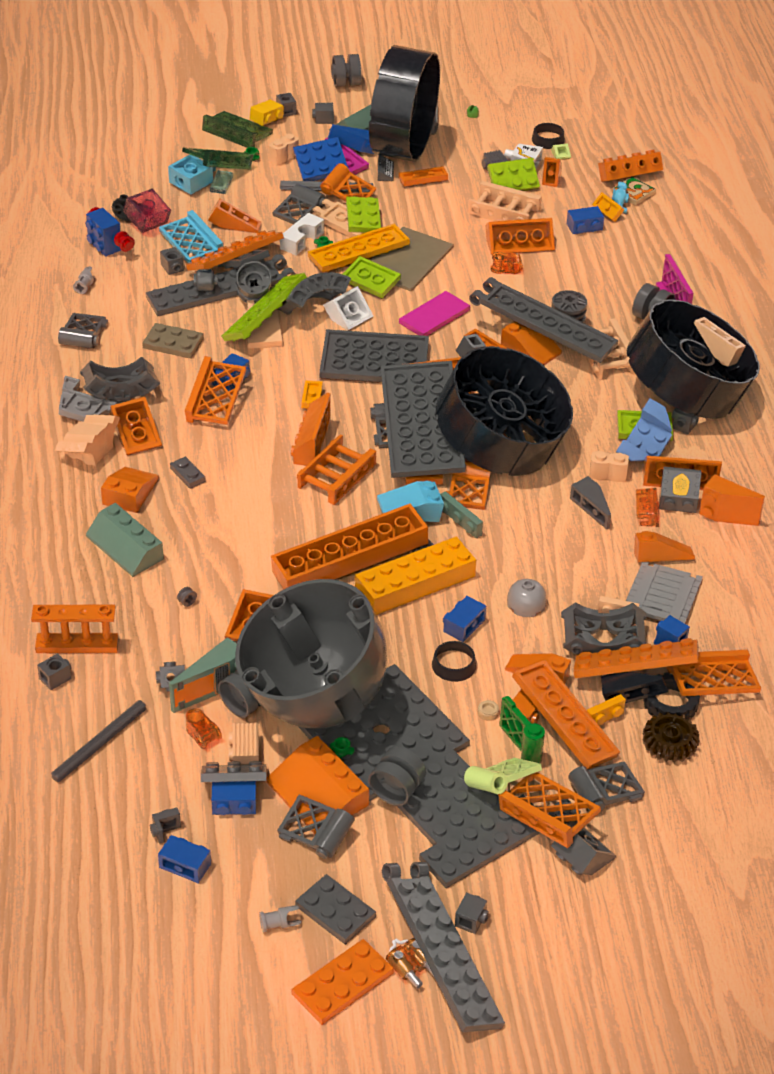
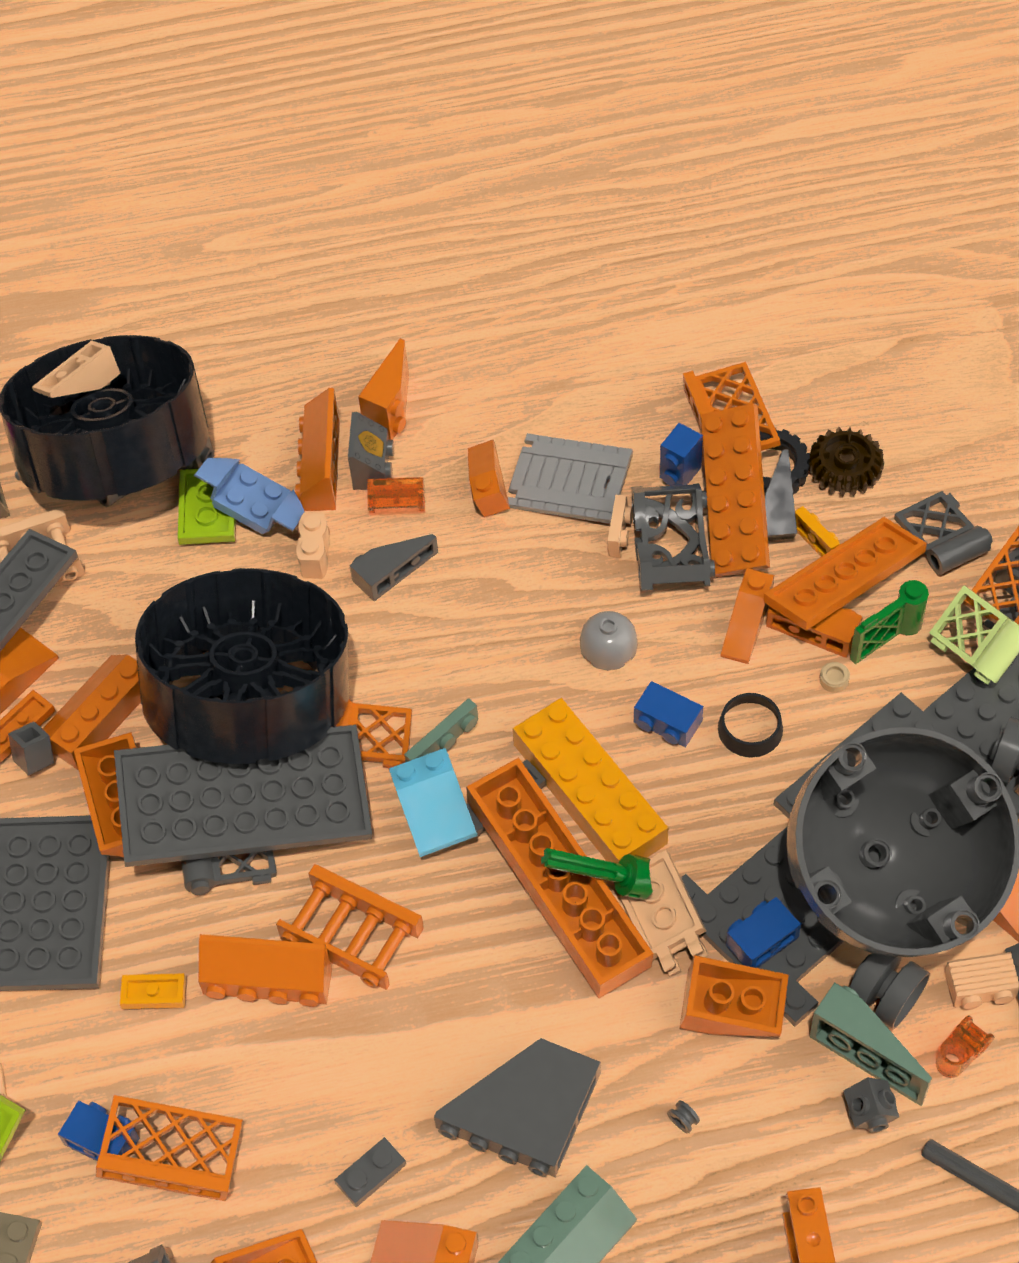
camera: 90 degrees left, 15 degrees up
(208, 532) = (525, 1107): none -> dark grey slope
(342, 573) = (629, 876): none -> green piece

